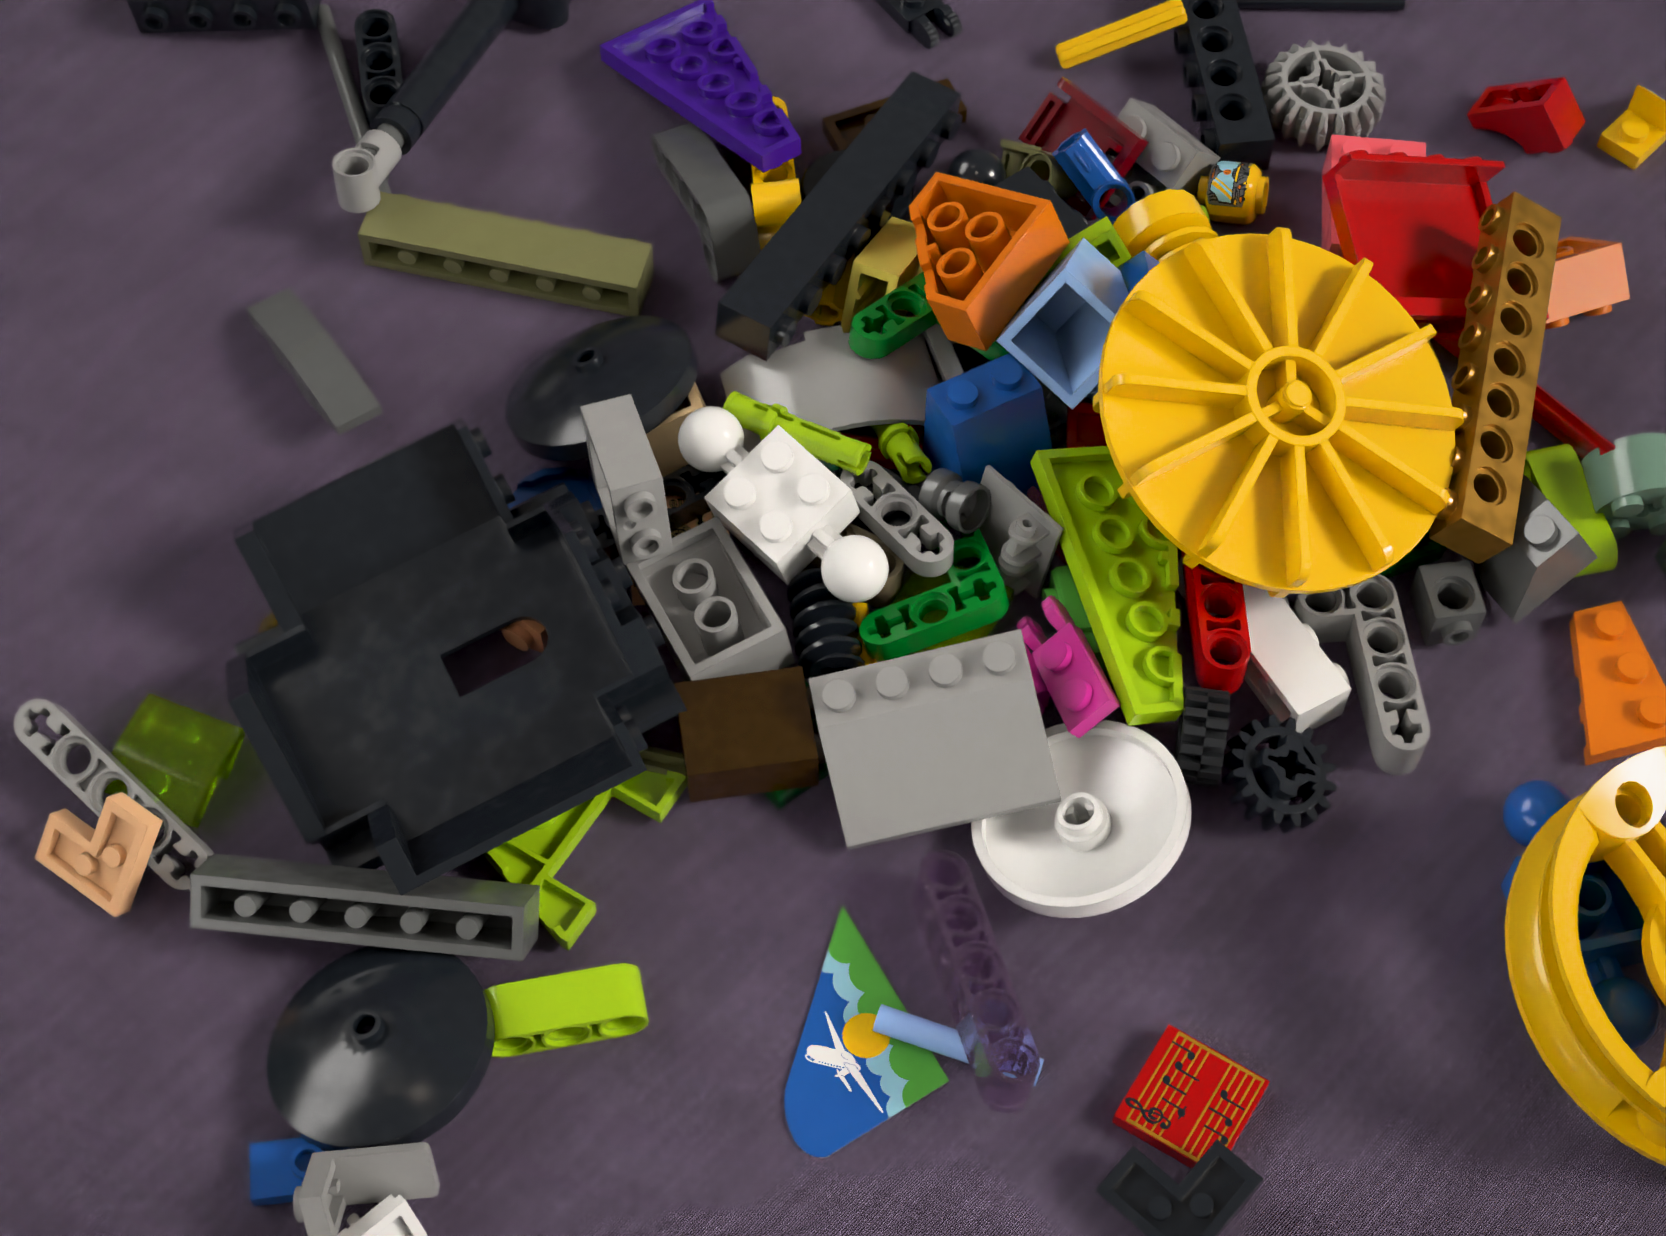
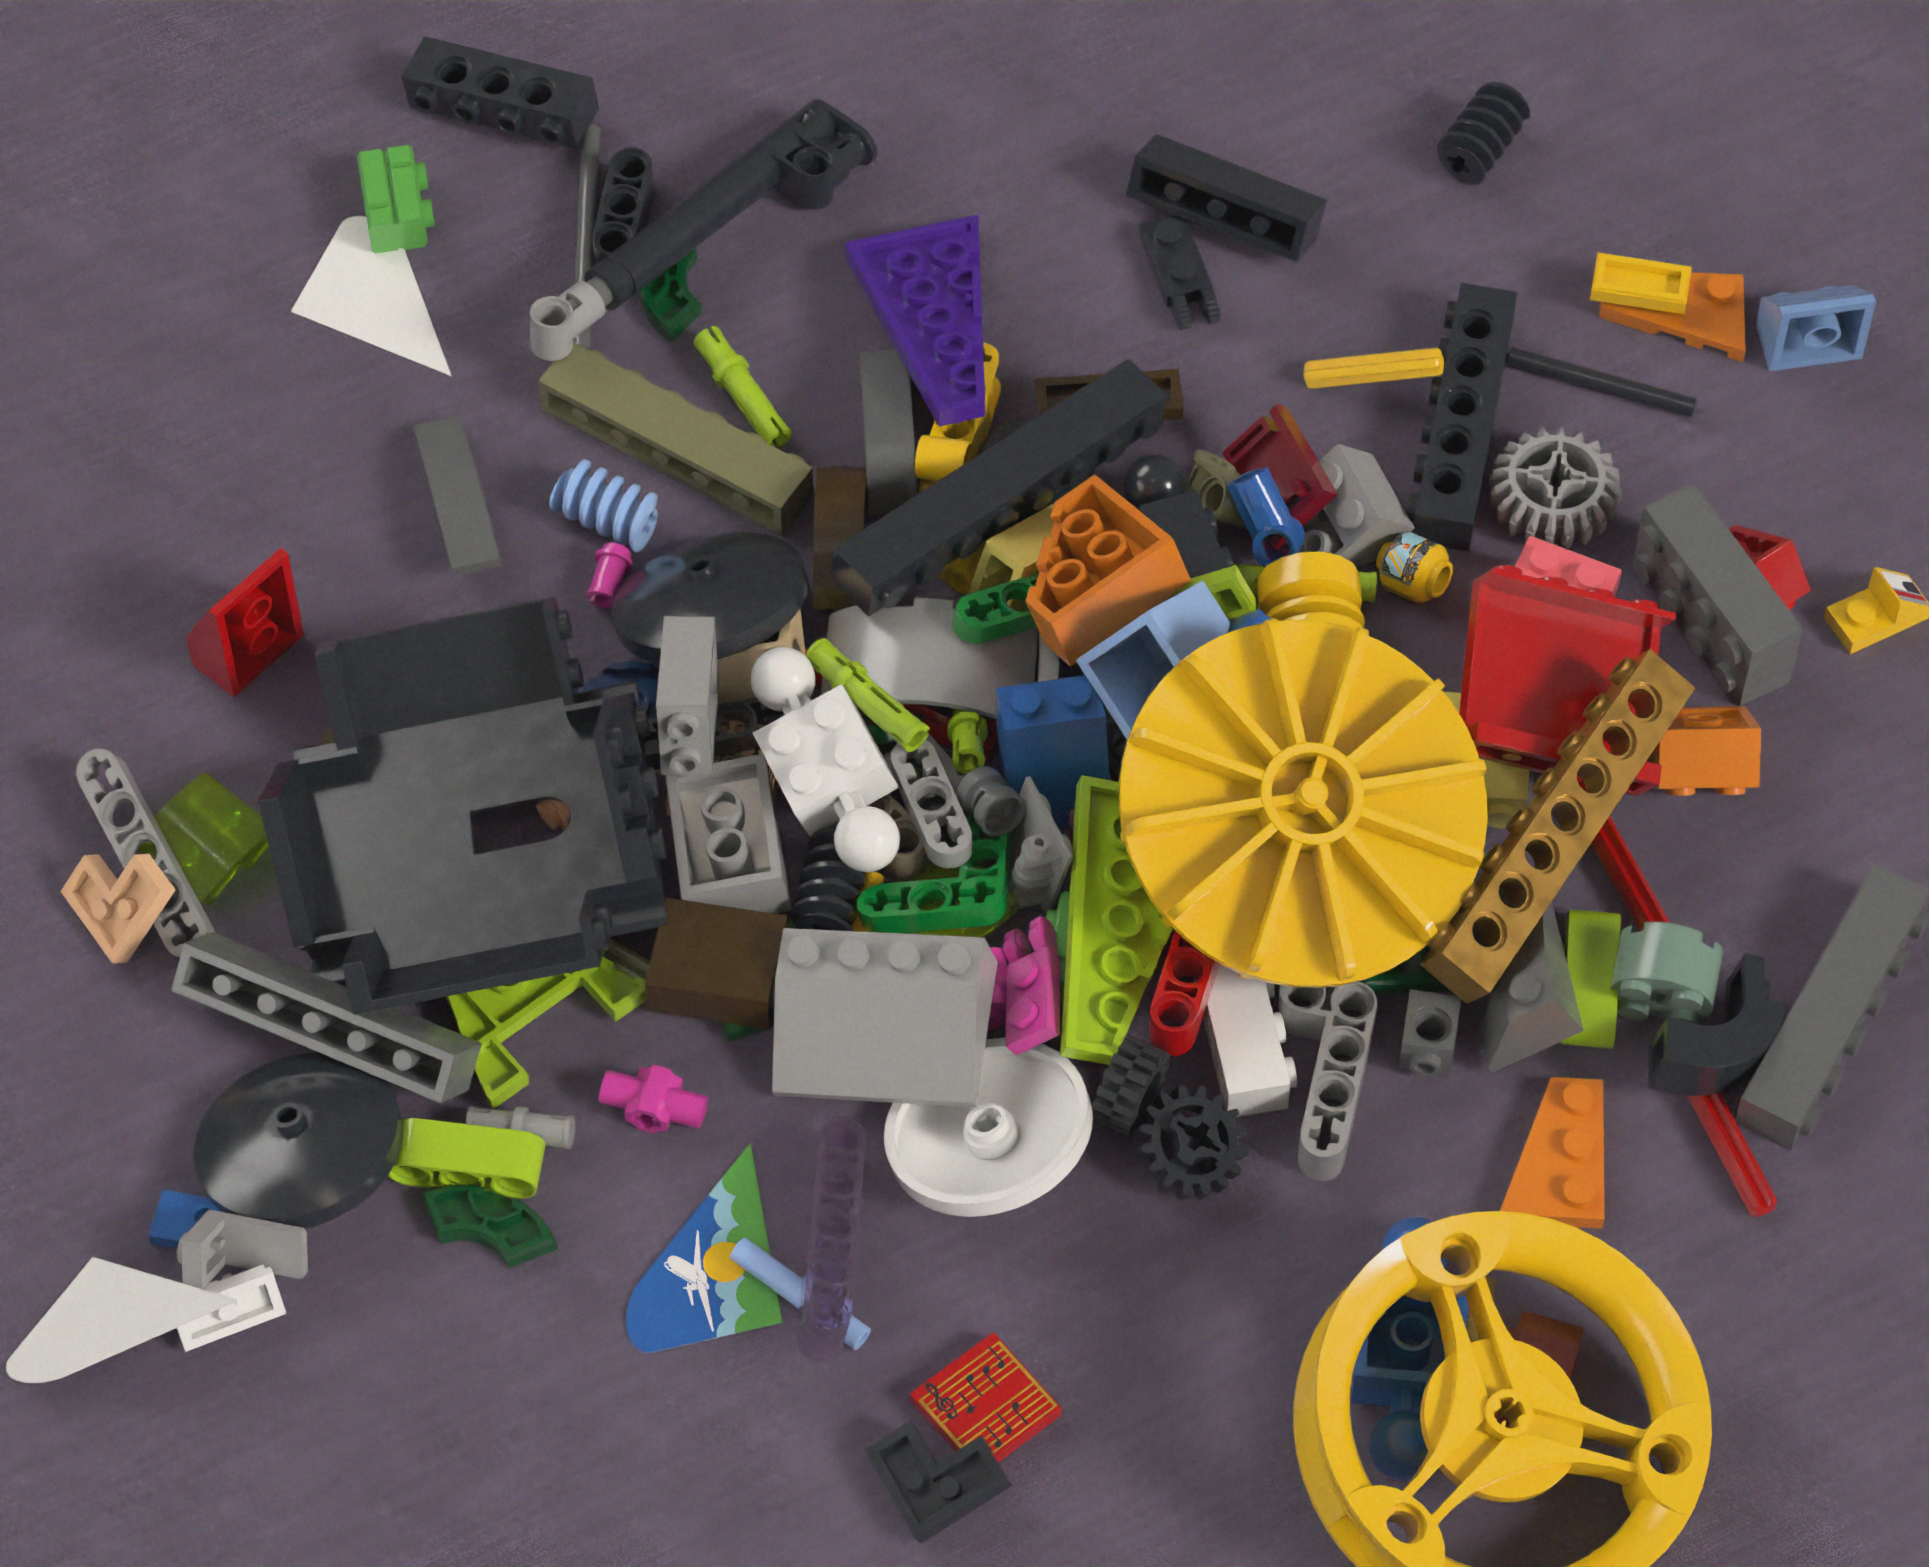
camera: 20 degrees right, 0 degrees up
(148, 536) = (248, 627): none -> red slope
(155, 111) = (393, 198): none -> bright green brick
(160, 201) = (371, 297): none -> white sticker
(452, 139) = (669, 301): none -> dark green tile
(463, 331) = (605, 505): none -> light blue piece
(489, 386) = (611, 566): none -> dark pink pin
(538, 186) = (732, 374): none -> lime pin
(610, 1067) = (488, 1219): none -> dark green tile
(640, 951) = (553, 1129): none -> light grey pin
(698, 284) = (837, 517): none -> dark brown arch
(732, 890) = (653, 1099): none -> dark pink axle
(1544, 148) = (1716, 595): none -> dark grey brick

